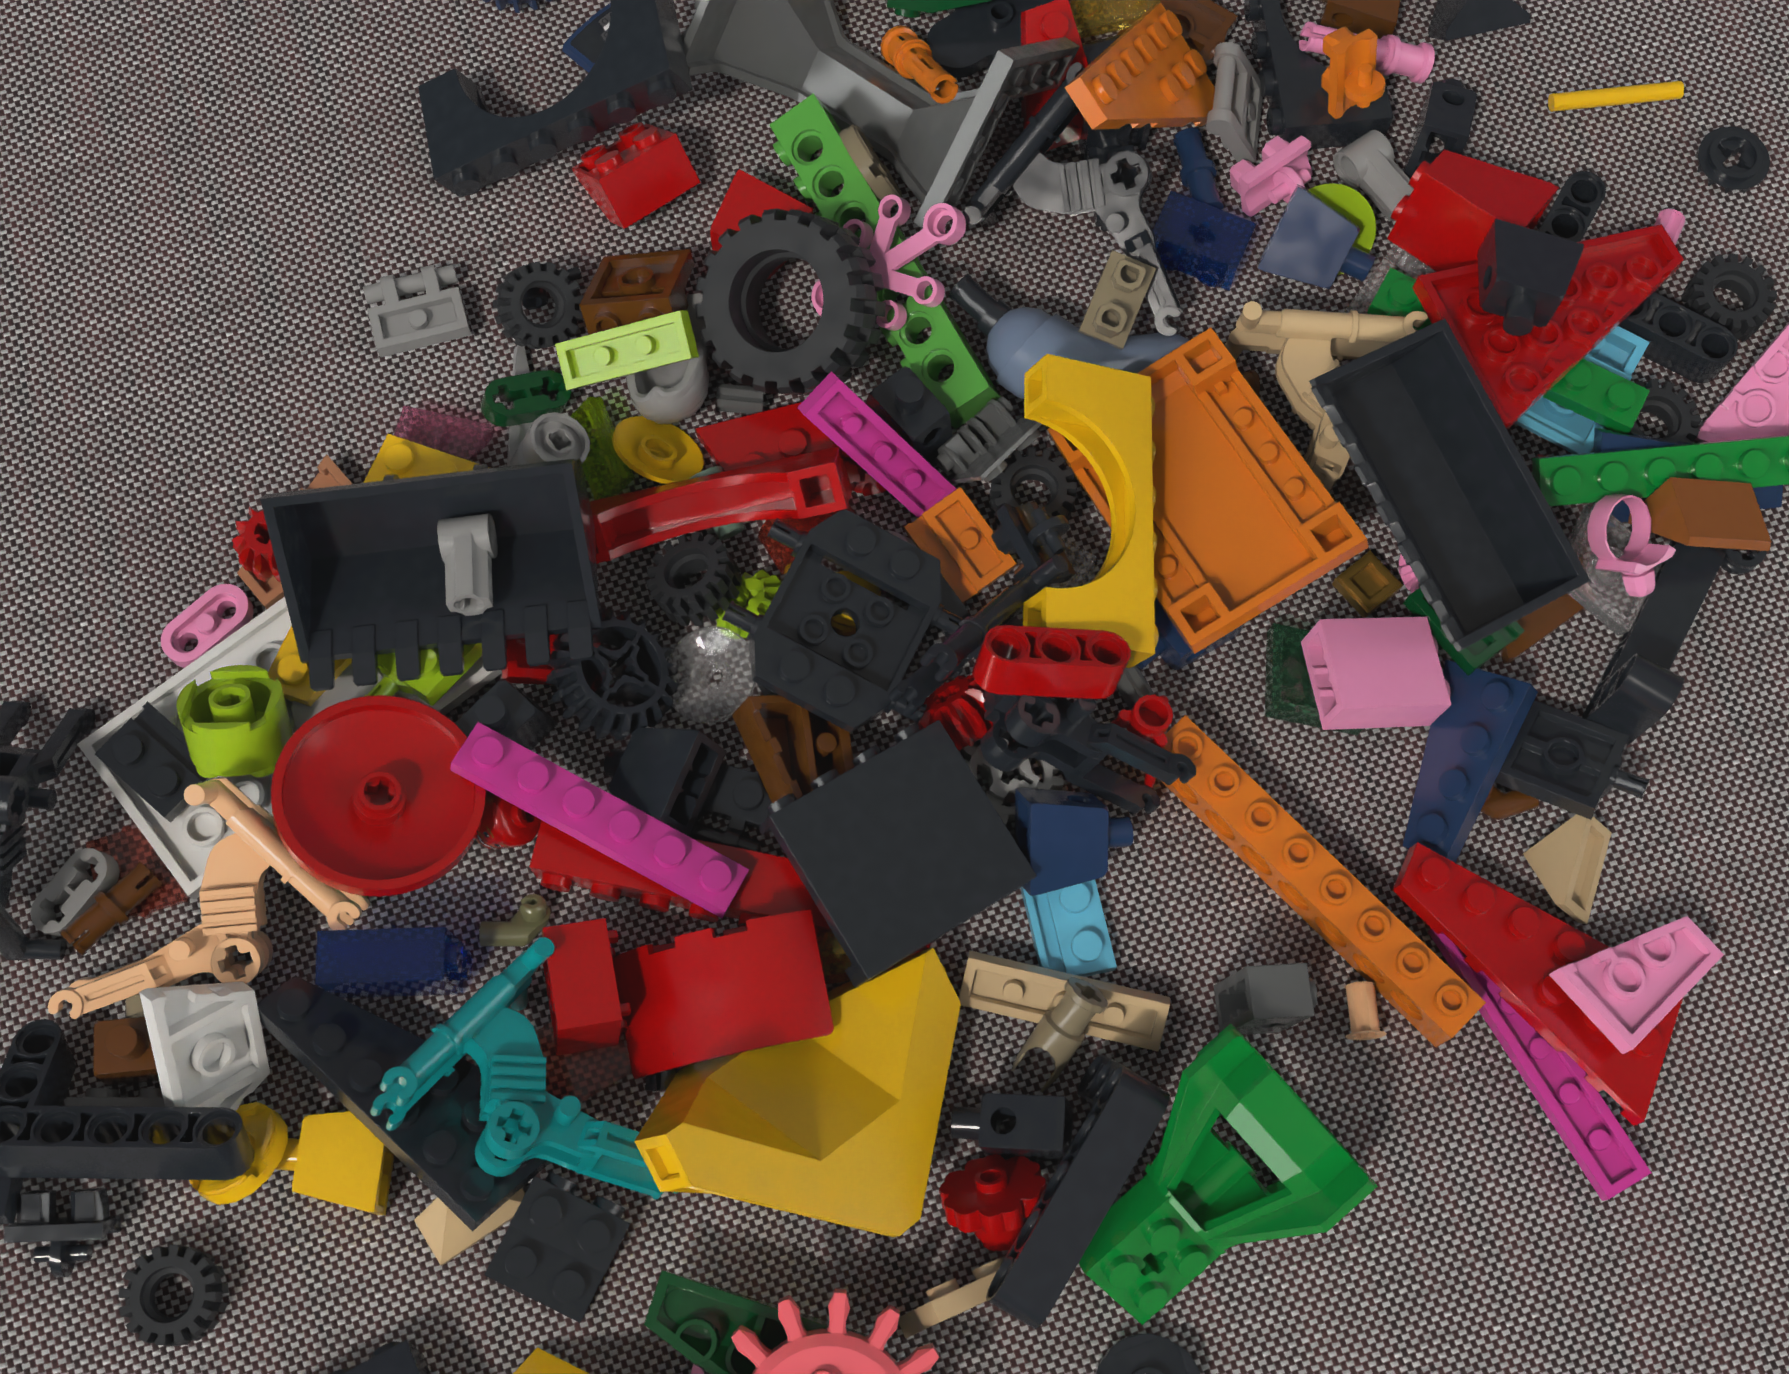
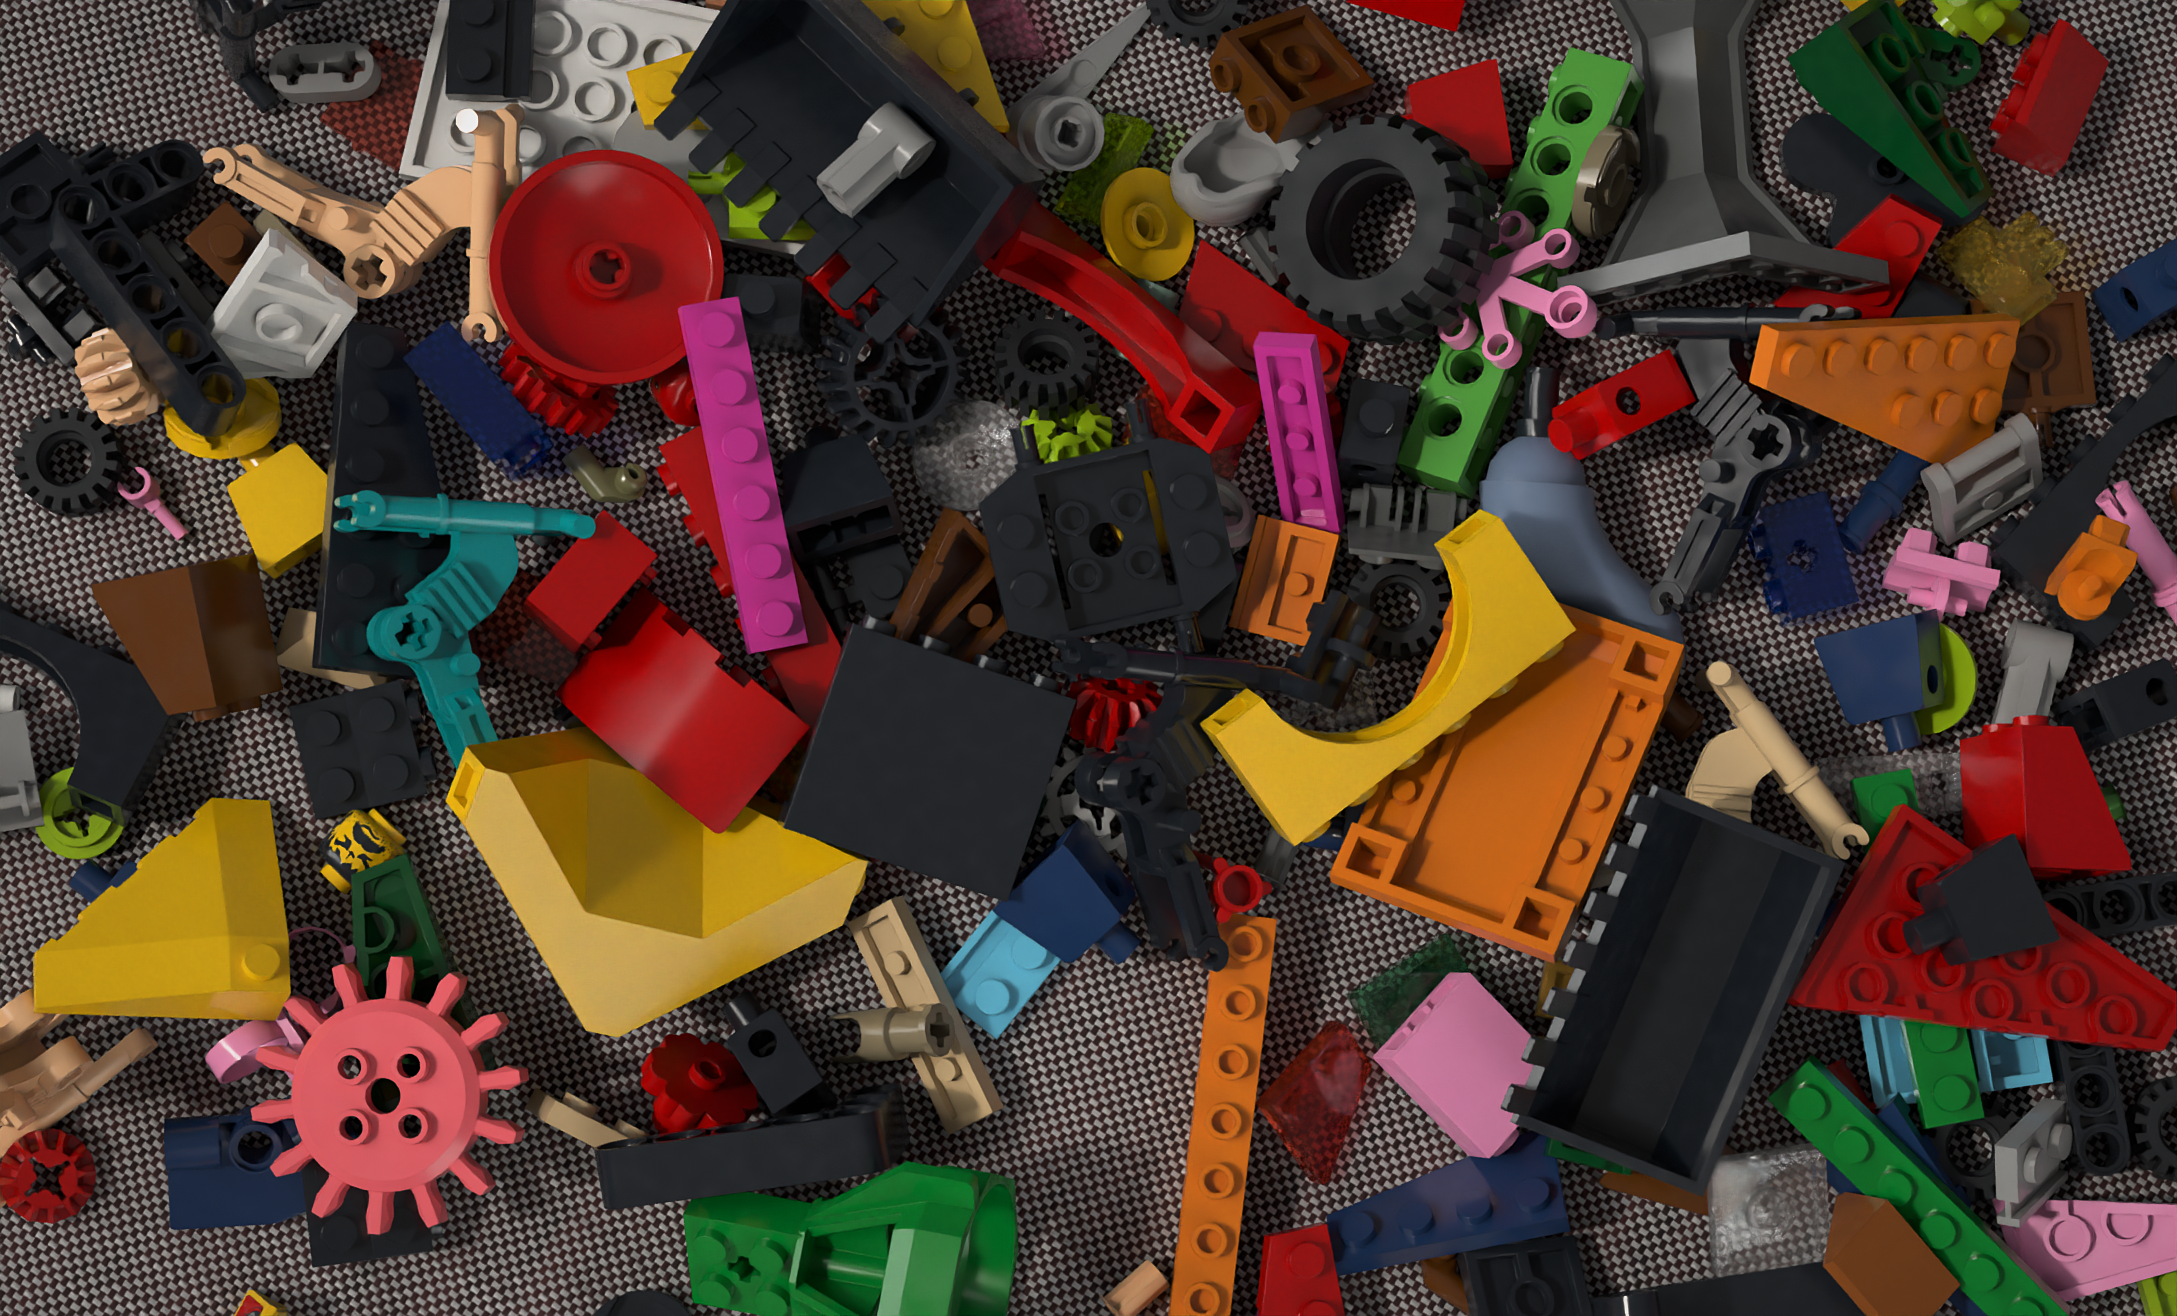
camera: 50 degrees right, 10 degrees up
(111, 908) = (335, 117): reddish brown pin -> none
(146, 1209) = (115, 380): none -> light nougat gear
(235, 722) = (571, 83): lime brick -> none
(250, 1259) = (150, 499): none -> bright pink hand
(375, 1298) = (197, 635): none -> reddish brown slope
(432, 905) = (560, 401): none -> red gear
(524, 393) = (1091, 70): dark green beam -> none
(623, 1306) = (358, 844): none -> yellow head
(627, 350) = (1214, 116): lime plate -> none
(915, 61) = (1737, 176): orange pin -> none
(1021, 264) = (1599, 416): none -> red torso
(1051, 662) = (1222, 766): red beam -> none
(1117, 299) = (1639, 534): dark tan hips -> none
(1265, 998) = (1064, 1194): dark grey brick -> none
(1321, 789) = (1317, 1099): none -> clear red wing
(1639, 556) = (1786, 1234): bright pink piece -> none
(1697, 385) = (2030, 1159): none -> light grey plate

